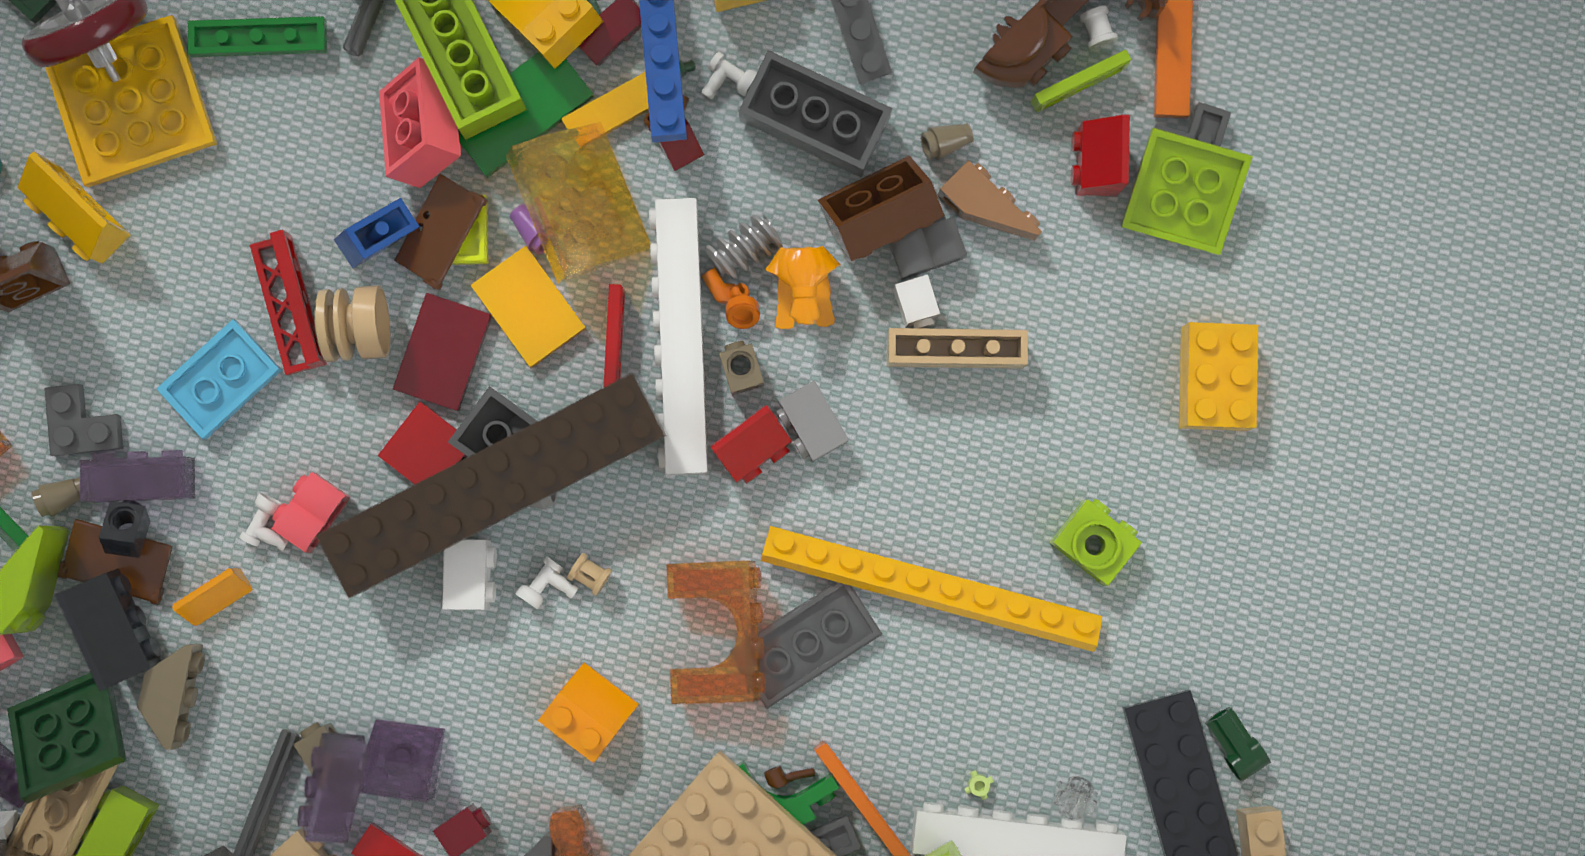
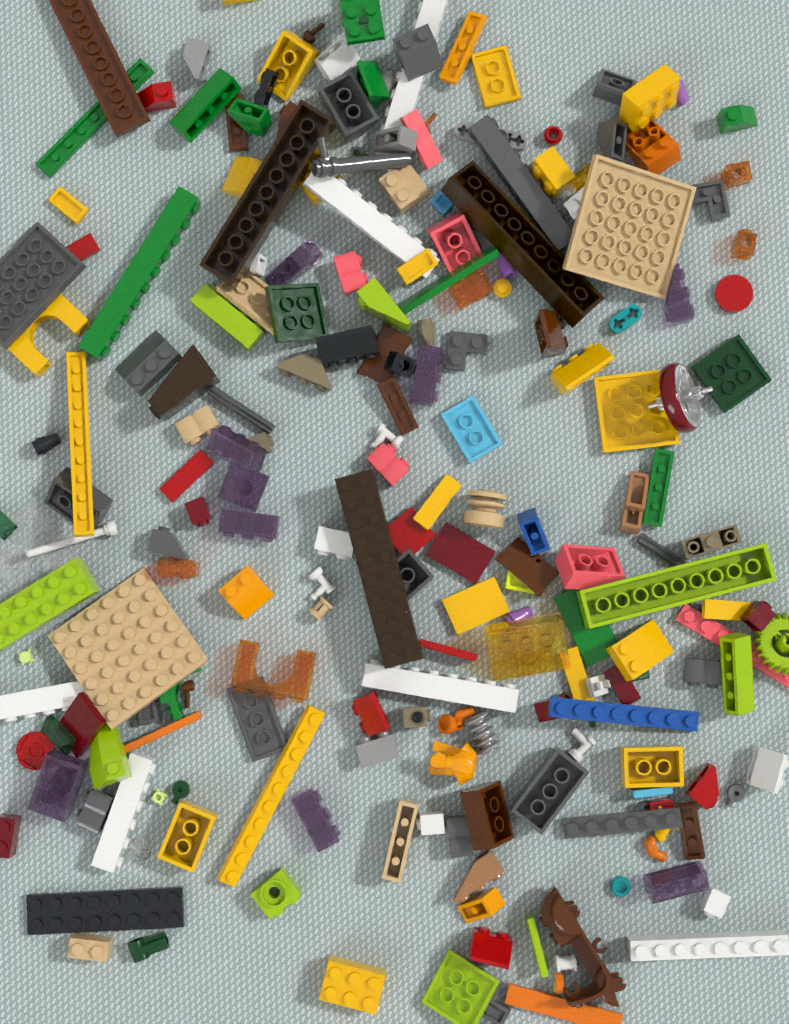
camera: 110 degrees right, 0 degrees up
(202, 518) = (397, 405): none -> reddish brown tile
(213, 596) = (354, 403): light orange slope -> none
(293, 71) = (634, 503): none -> medium nougat slope
(296, 301) = (506, 481): red fence -> none
(360, 412) = (437, 502): none -> yellow tile
(468, 735) = (249, 525): none -> clear purple brick
(620, 69) = (597, 685): none -> white tile
(944, 140) = (519, 859): dark tan cone -> none
(954, 500) = (316, 819): none -> clear purple brick
(967, 750) = (180, 794): none -> dark green piece
(1033, 718) = (187, 835): none -> yellow brick
(1035, 187) = (481, 905): none -> light orange slope
(1134, 33) = (558, 982): none -> orange tile

